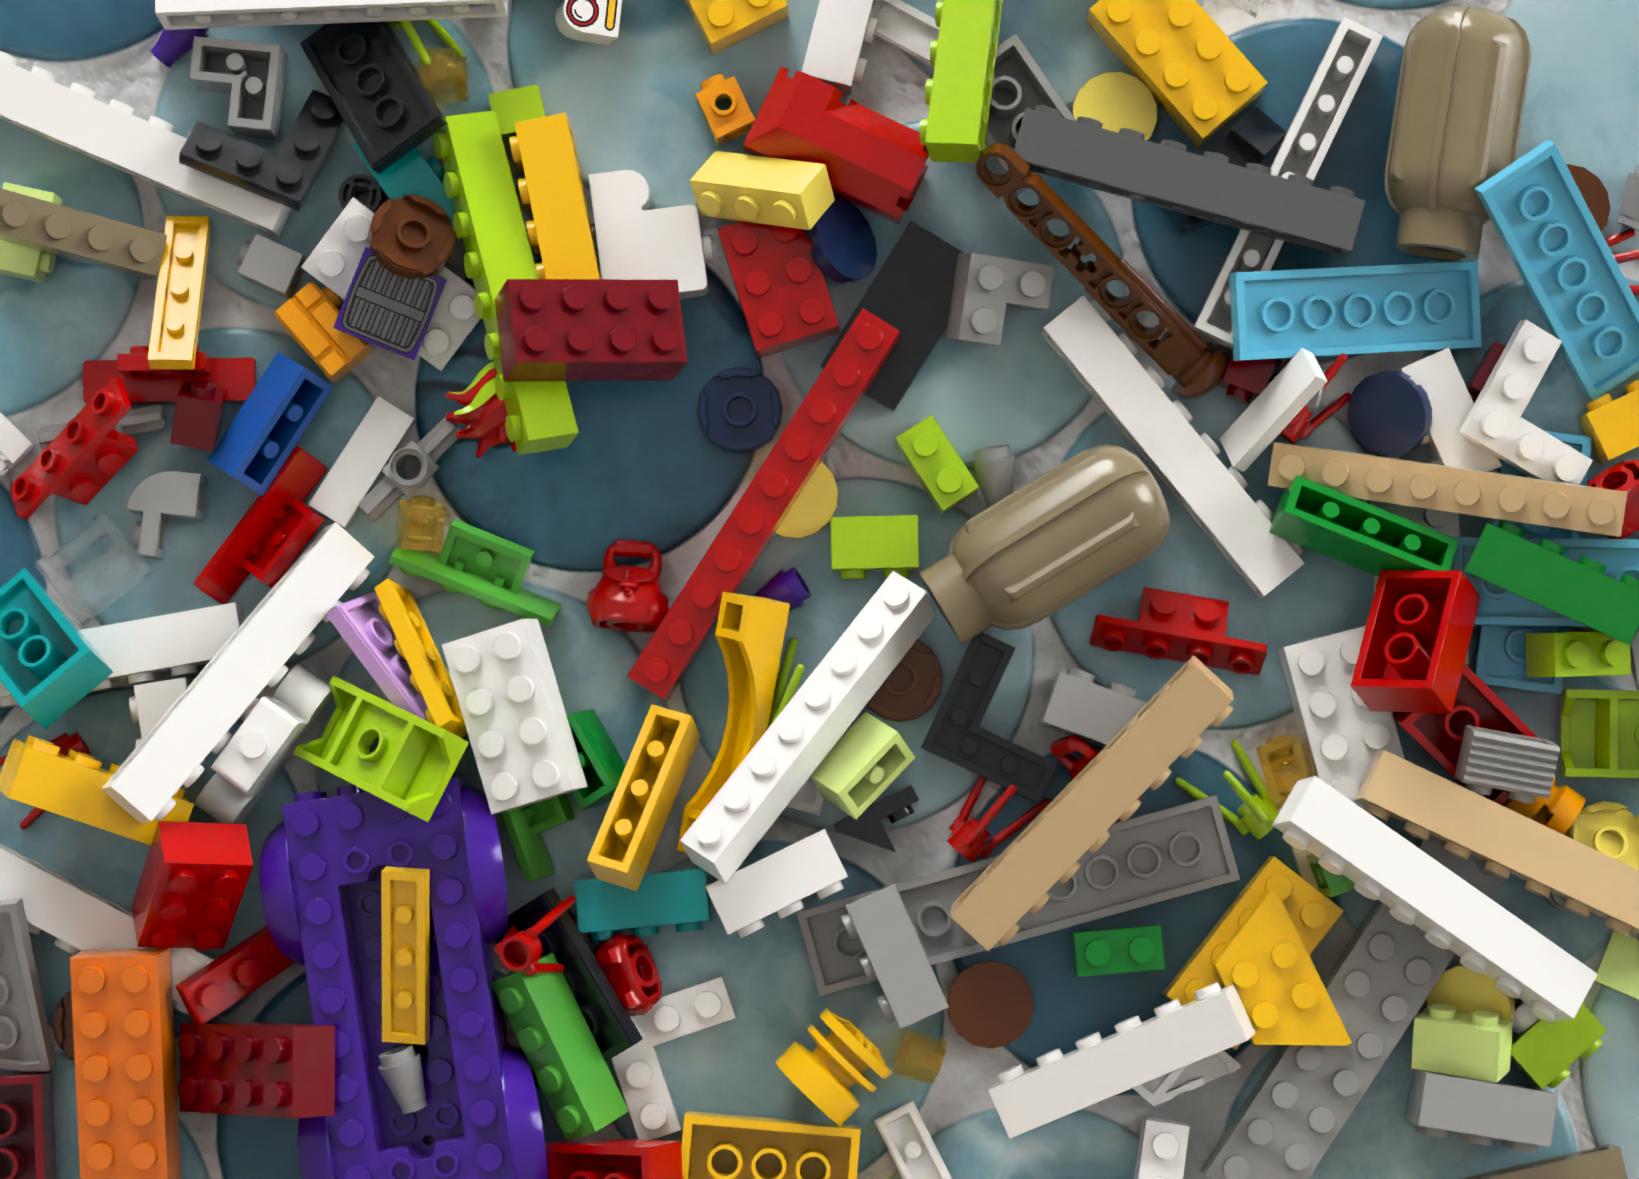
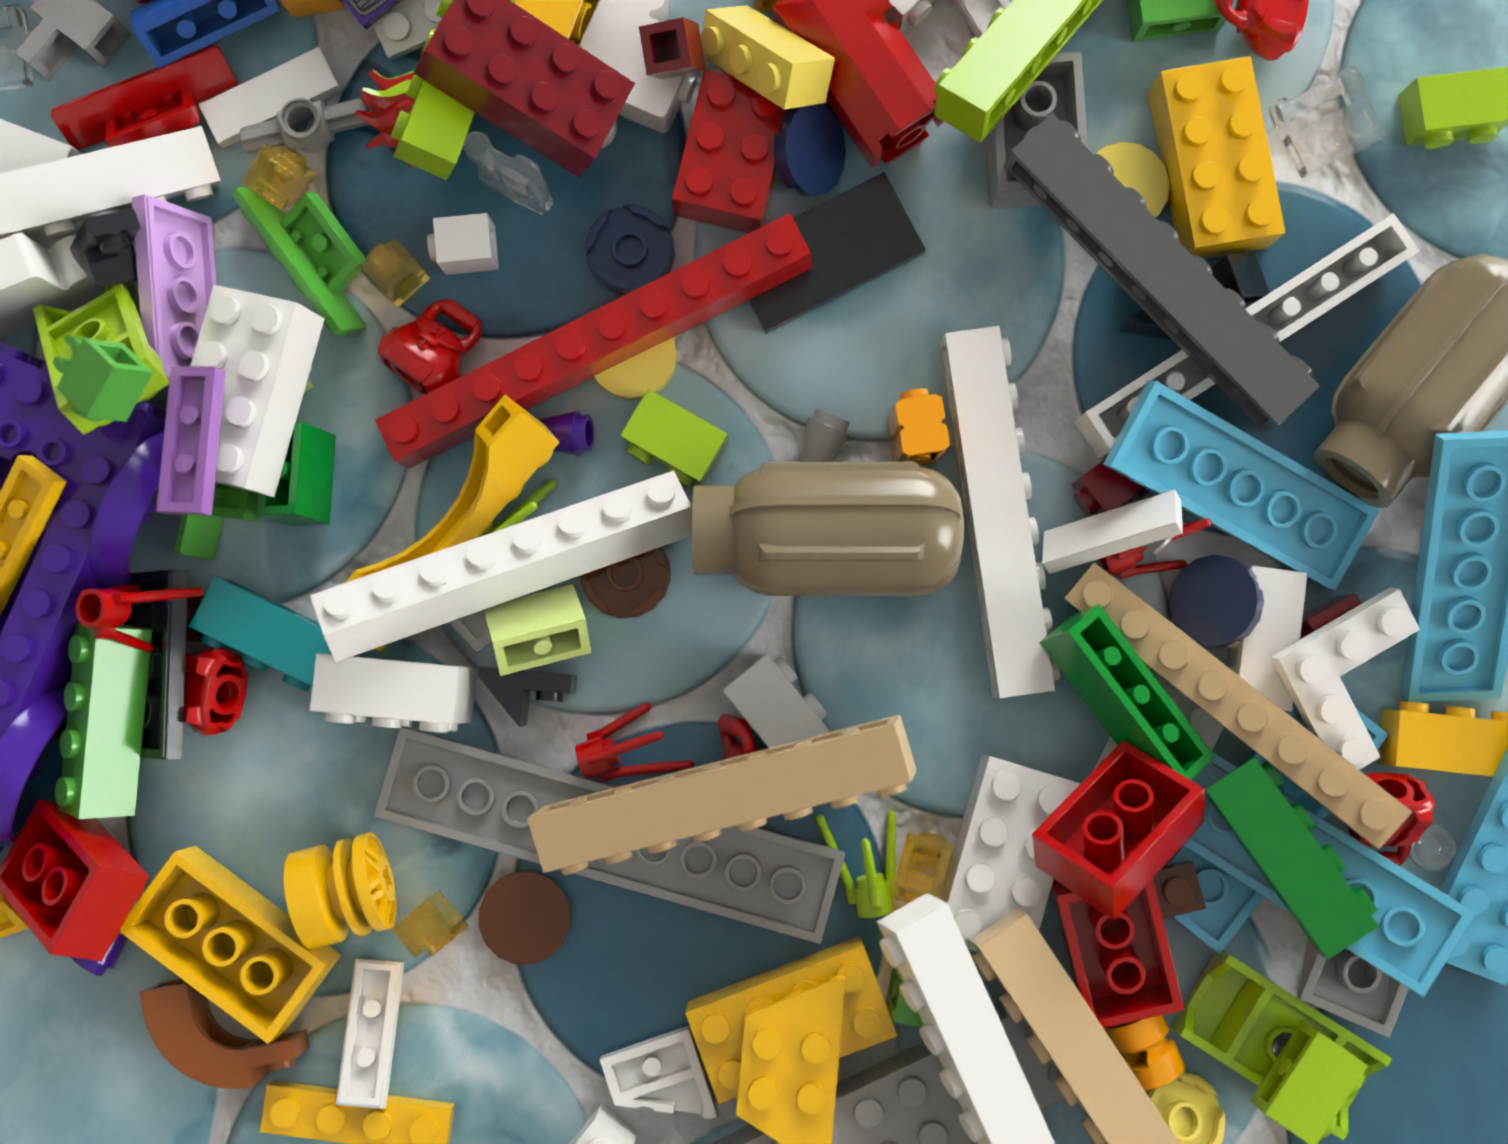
camera: 30 degrees right, 0 degrees up
(335, 671) = (106, 248): none -> black slope
(418, 648) = (208, 264): yellow plate -> none
(427, 767) = (101, 379): none -> bright green brick
(513, 776) = (191, 441): none -> medium lavender plate
(559, 545) = (390, 266): none -> clear yellow brick
(602, 488) = (464, 244): none -> white brick
(622, 409) = (512, 177): none -> clear plate
(639, 1065) = (178, 782): white plate -> none
(644, 797) = (319, 539): yellow brick -> none
(687, 232) = (672, 48): none -> dark red brick
(894, 957) = (452, 826): light grey brick -> none
(936, 465) = (774, 400): lime brick -> none
(956, 727) = (645, 653): black plate -> none
(984, 289) = (919, 266): light grey brick -> none
(1068, 419) = (918, 427): none -> light orange brick
(1117, 950) = (668, 941): green brick -> none
(1121, 1060) = (608, 1050): white brick -> none
(1176, 629) = (903, 682): red bracket -> none
(1179, 350) = (1059, 427): reddish brown piece -> none
(1495, 663) = (1178, 889): none -> reddish brown plate
(1506, 763) = (1137, 996): light grey brick -> none
(1576, 655) = (1259, 929): lime brick -> none

